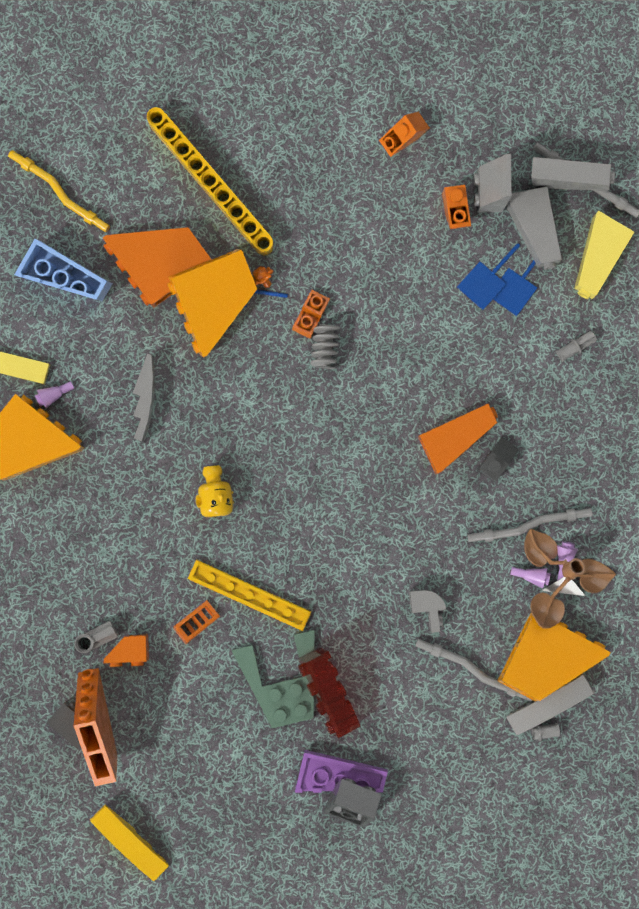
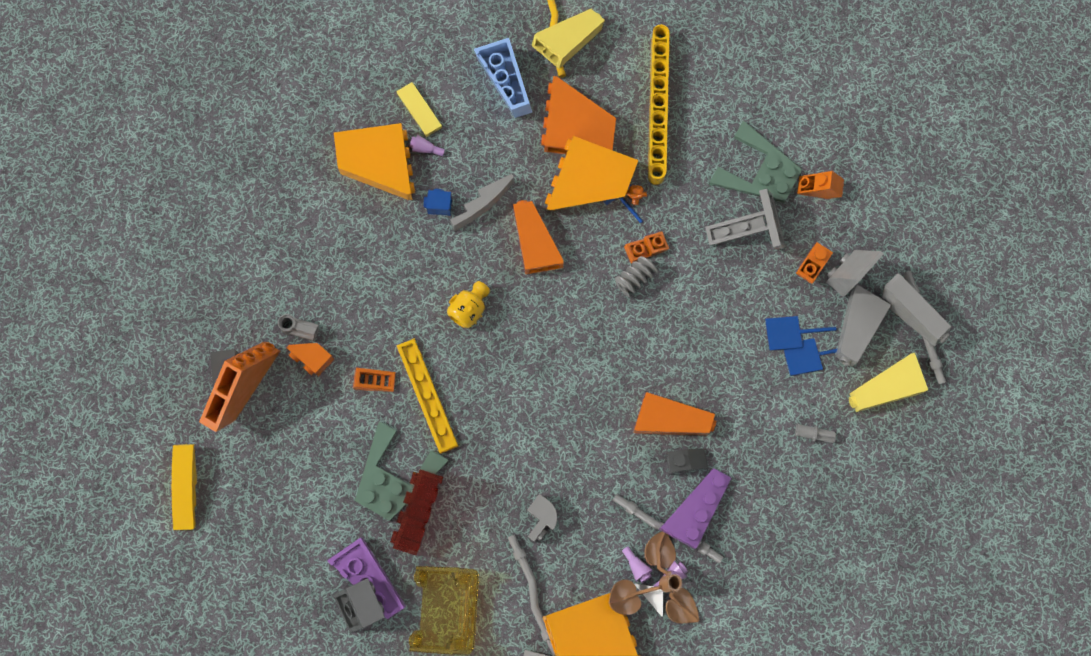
camera: 45 degrees right, 10 degrees down
(82, 192) = (566, 38): none -> light yellow slope
(108, 431) = (438, 202): none -> blue brick
(219, 392) = (536, 244): none -> orange slope
(359, 157) = (775, 174): none -> sand green wing
(379, 220) = (750, 225): none -> light grey piece
(421, 745) = (446, 610): none -> clear yellow windscreen
(540, 492) = (696, 511): none -> medium lavender wing

